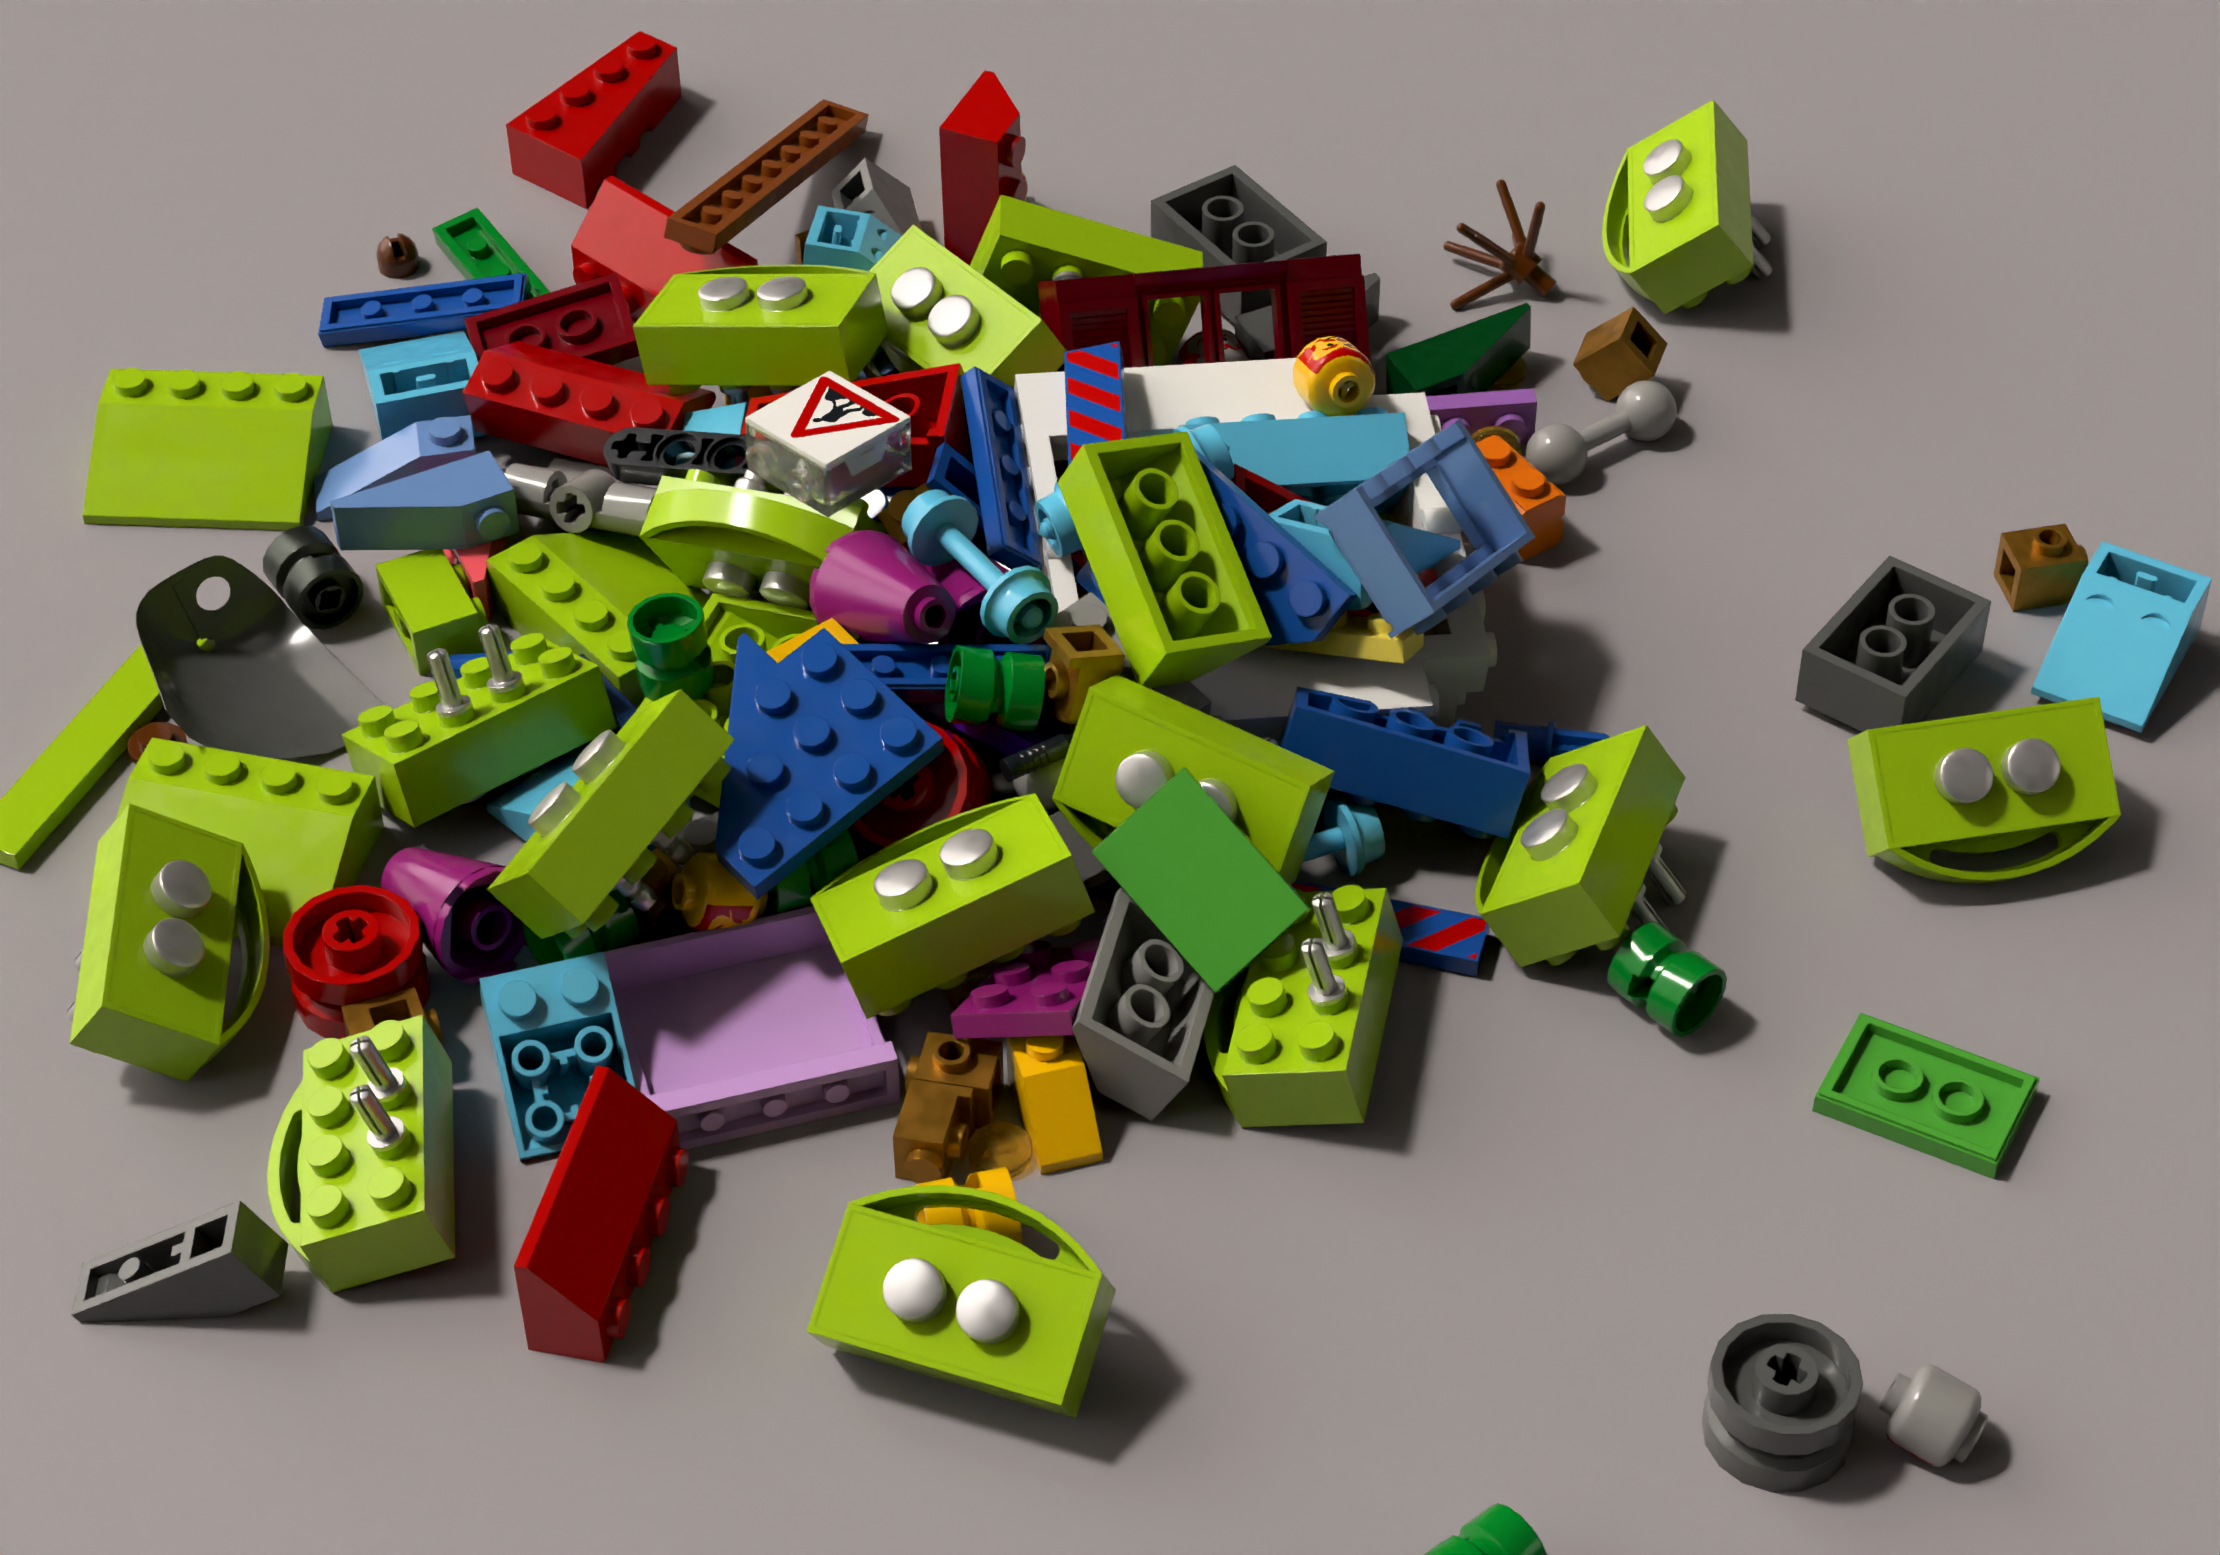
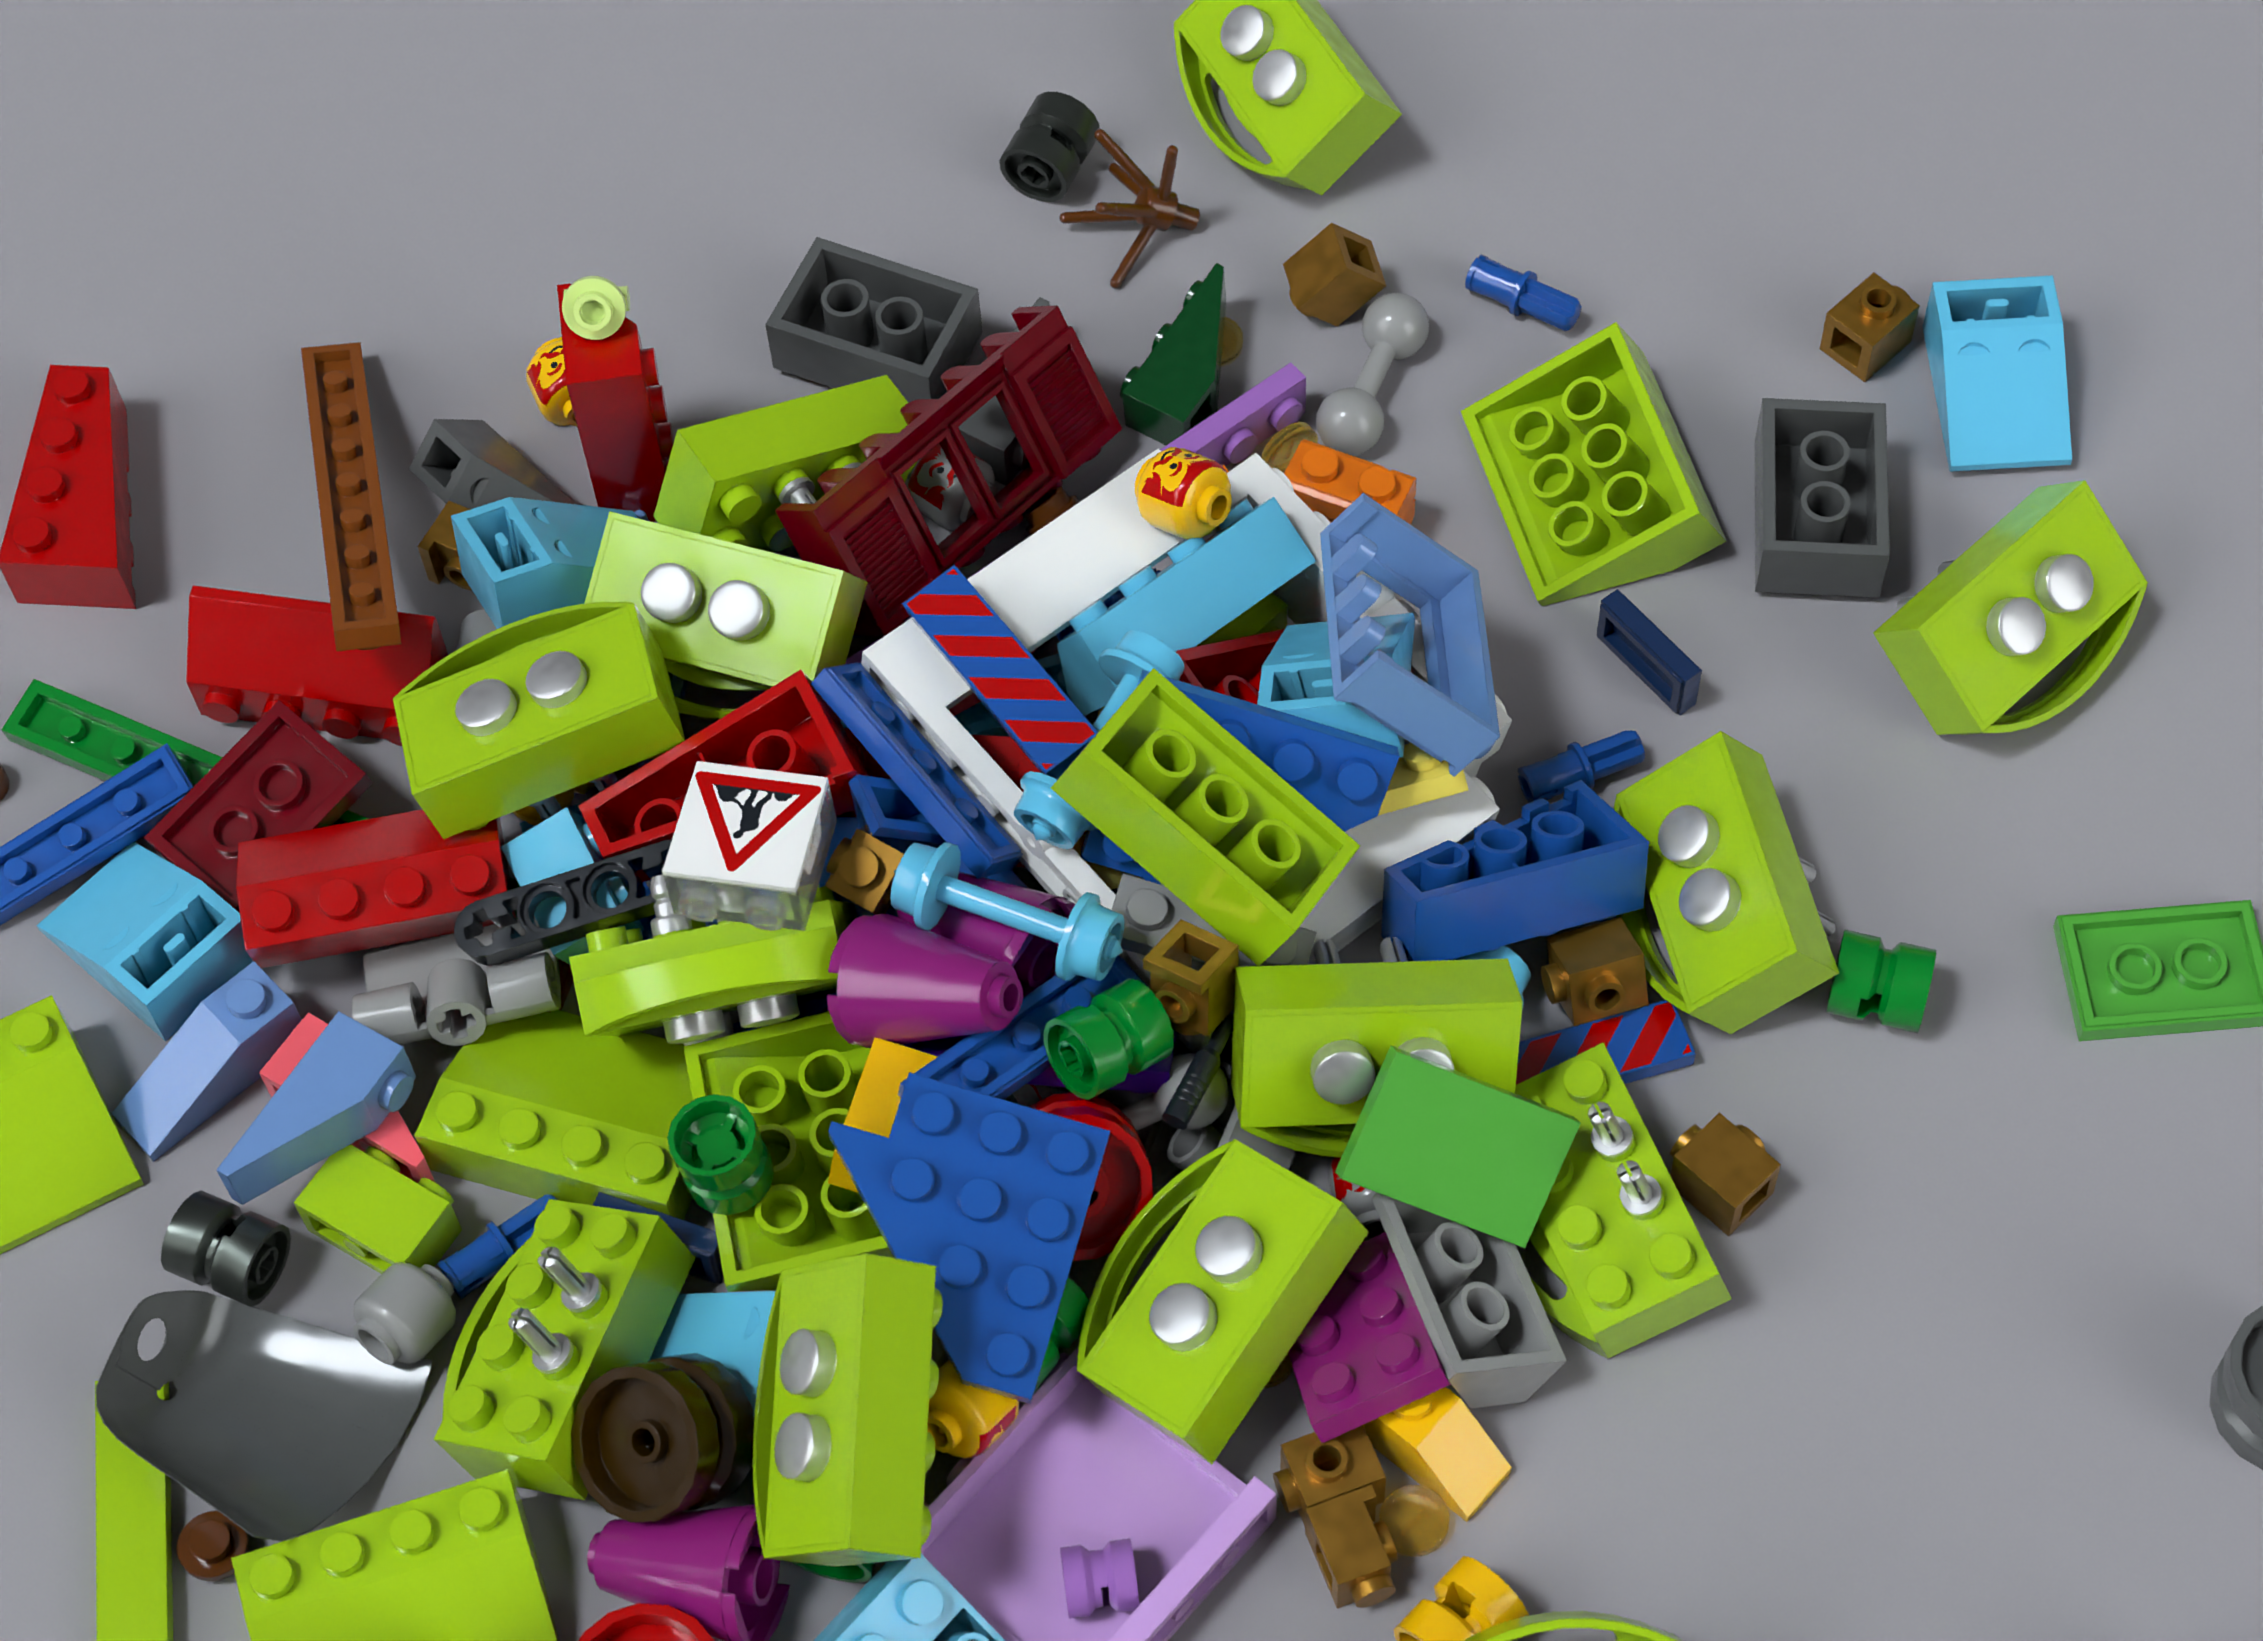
camera: 30 degrees left, 15 degrees up
(390, 665) = (404, 1313): none -> light grey head
(482, 793) = (663, 1437): none -> dark brown wheel
(725, 1051) = (1099, 1578): none -> medium lavender wheel
(994, 84) = (595, 307): none -> yellowish green plate
(1431, 1043) = (1723, 1171): none -> pearl gold brick
(1438, 867) = (1595, 971): none -> pearl gold brick
(1468, 193) = (1049, 146): none -> pearl dark grey wheel
(1665, 693) = (1648, 652): none -> dark blue tile
(1727, 563) = (1592, 471): none -> lime slope
(1768, 432) = (1522, 293): none -> blue axle

